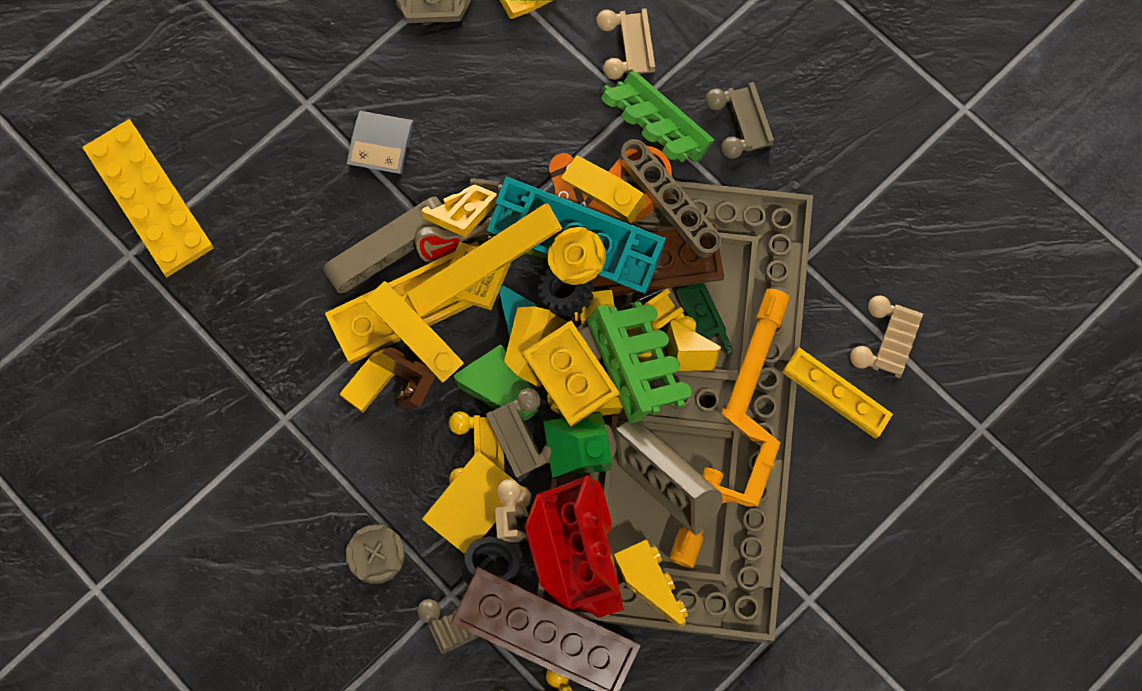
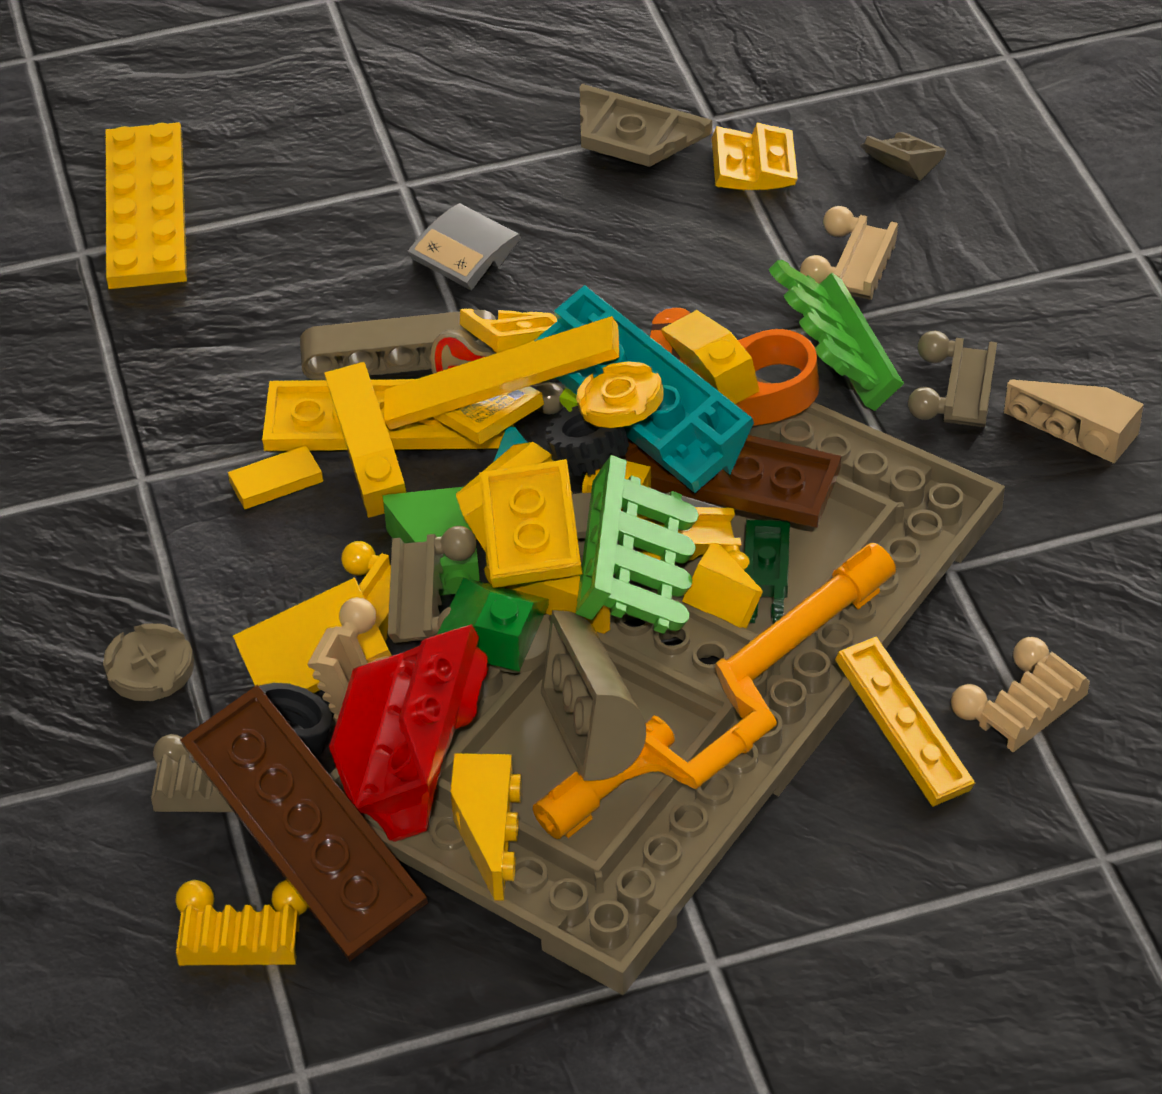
camera: 25 degrees right, 25 degrees down
(419, 379) = (326, 465): reddish brown bracket -> none
(667, 184) = (795, 405): dark tan beam -> none
(831, 115) = (1078, 414): none -> tan slope

